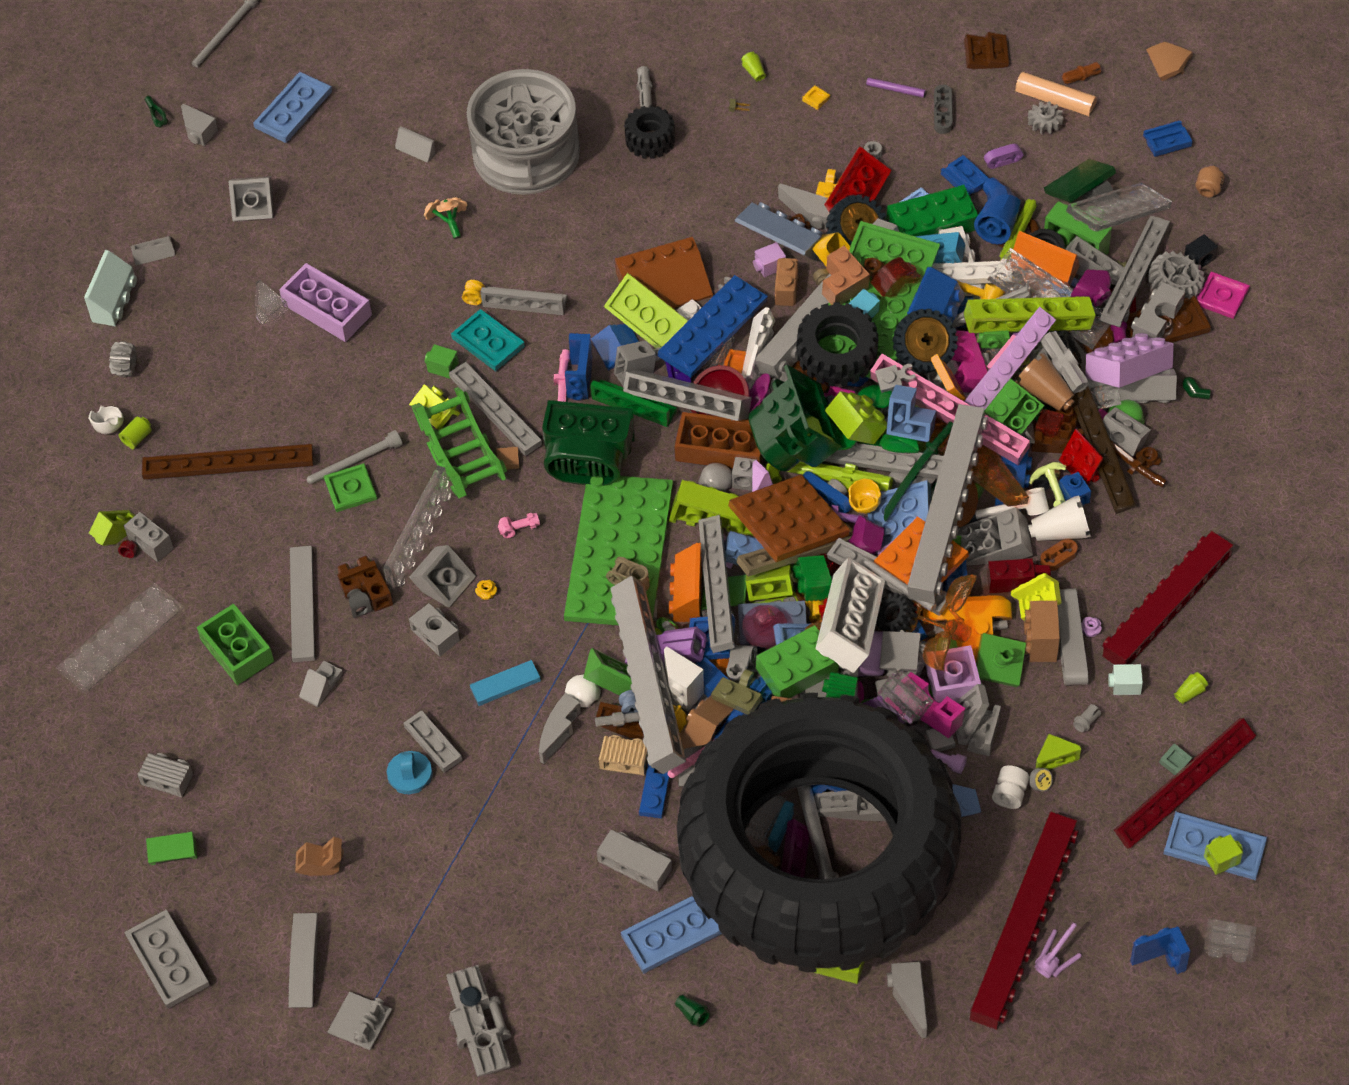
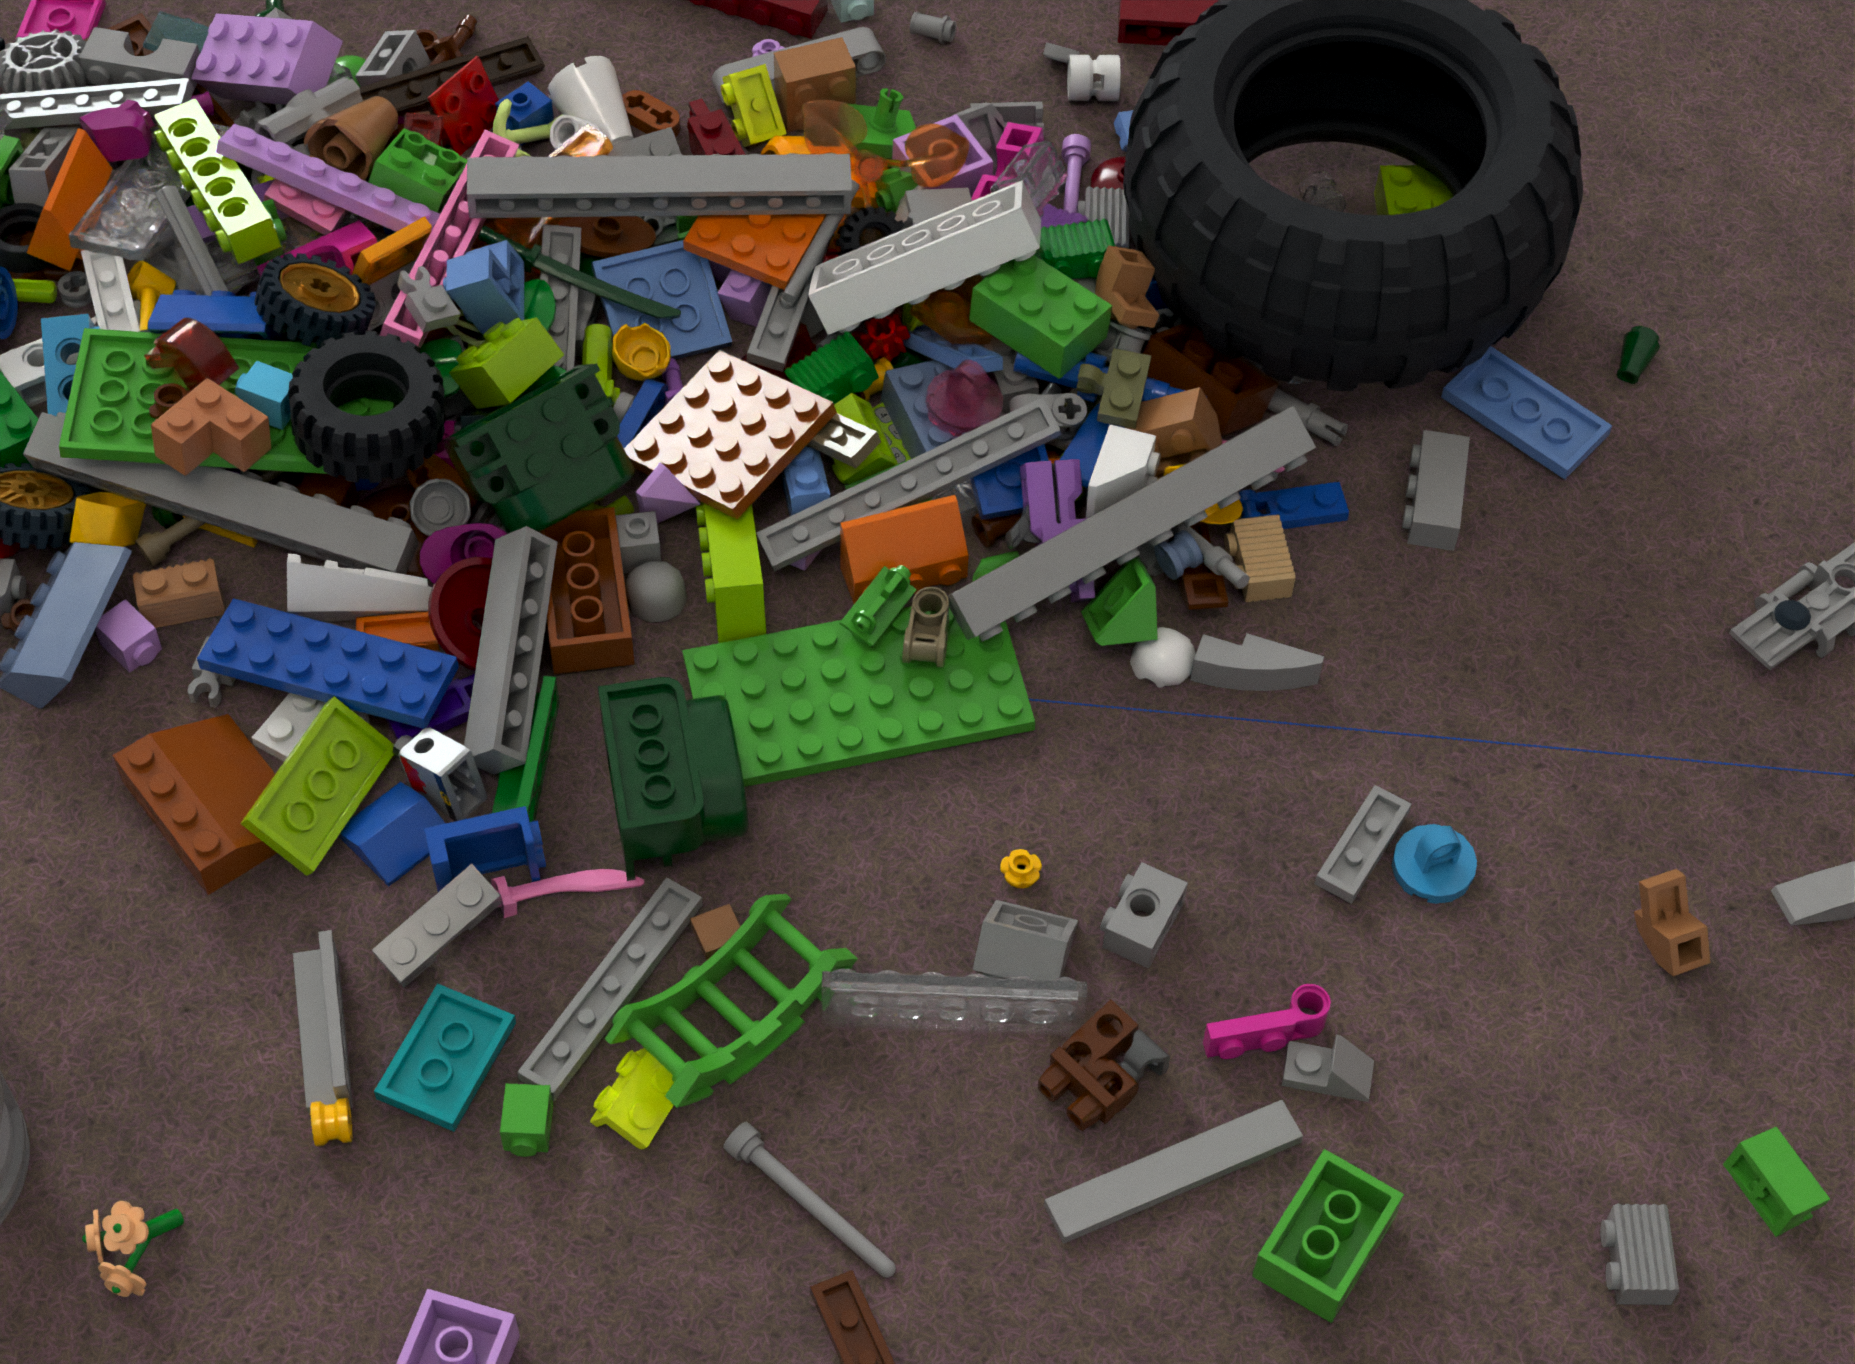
camera: 115 degrees left, 0 degrees up
(348, 663) = (1272, 1029): none -> dark pink plate
(350, 487) = (880, 1186): bright green tile -> none
(505, 683) = (1196, 778): dark azure tile -> none
(507, 527) = (875, 876): bright pink bar -> none
(548, 342) = (433, 926): none -> light grey arch
(654, 559) = (879, 604): none -> bright green hinge
(867, 535) = (722, 325): magenta piece -> none
(1057, 753) = (1015, 46): lime slope -> none
(1187, 341) = (175, 28): none -> clear light blue piece

